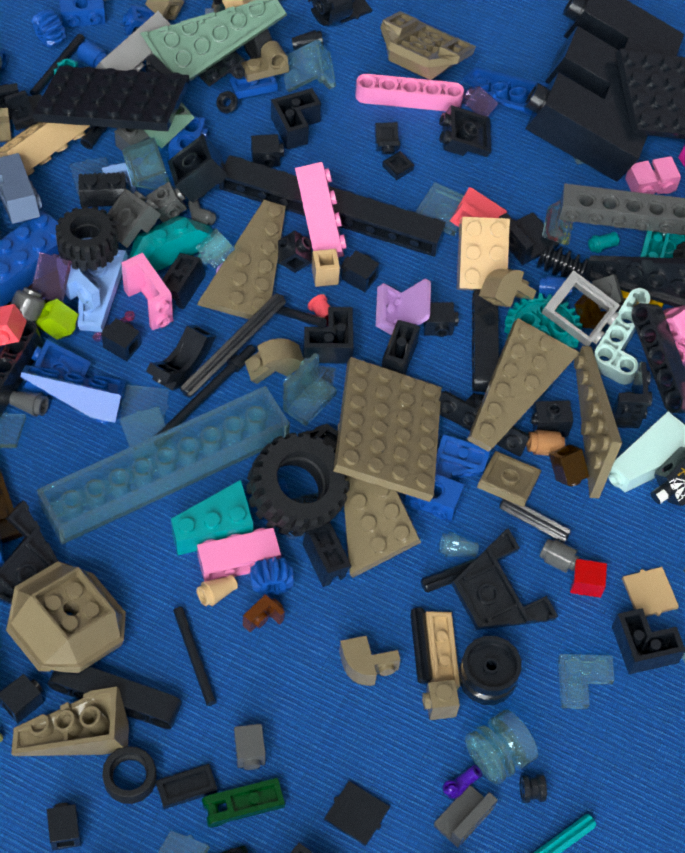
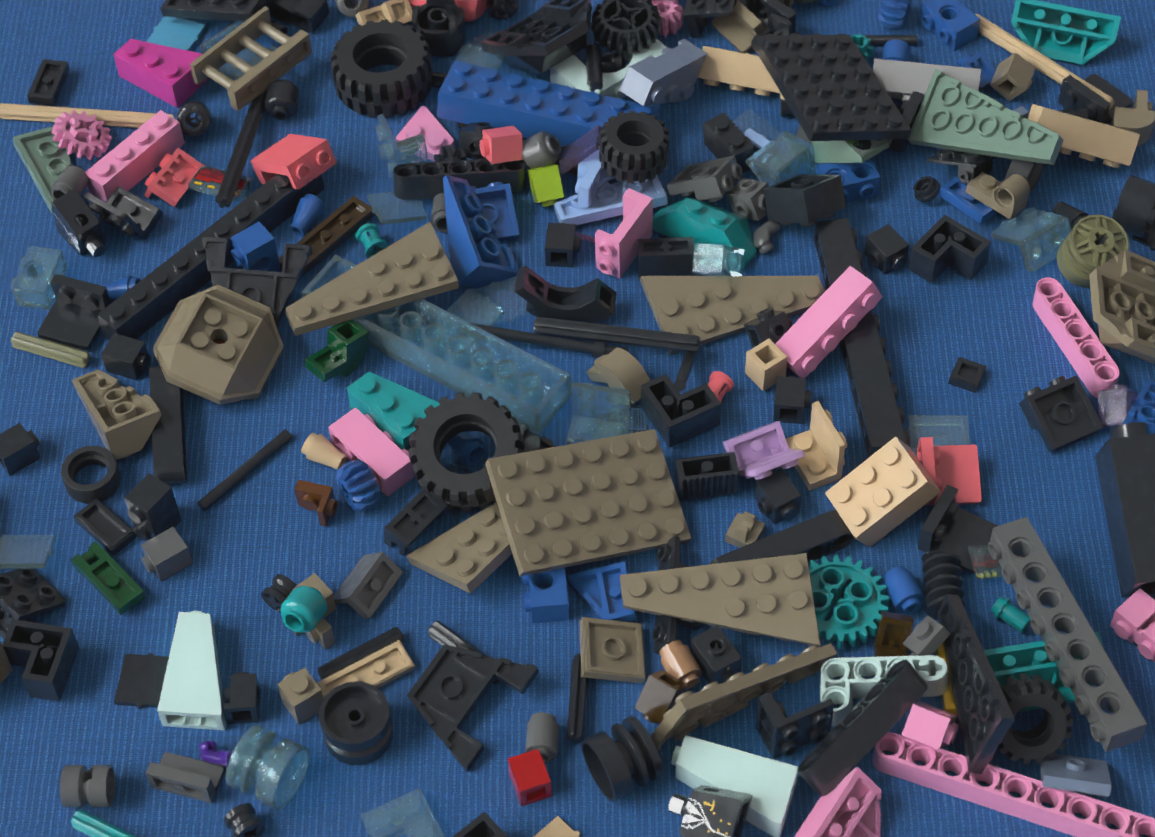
camera: 70 degrees right, 5 degrees down
(23, 464) = (371, 241): none -> teal bush
(93, 462) = (395, 276): none -> dark tan wing
(129, 533) = (344, 351): none -> dark green brick
(207, 735) = (152, 507): none -> black brick
(336, 676) = (278, 591): none -> black wheel
(353, 42) = (1088, 246): none -> olive wheel
(358, 612) = (368, 583): none -> dark grey panel
(379, 770) = (192, 678): none -> light aqua slope
(380, 658) = (303, 609): none -> teal head
(387, 137) = (992, 345): black bracket -> none
(413, 266) = (822, 449): none -> tan bracket
(419, 742) = (242, 699): none -> black brick
(452, 353) = (744, 530): none -> dark tan tile
(457, 546) = (496, 634): clear light blue cone -> none
(504, 285) = (847, 521): dark tan brick -> none
(577, 281) = (866, 583): light grey window -> none
(610, 510) = (623, 758): none -> black wheel

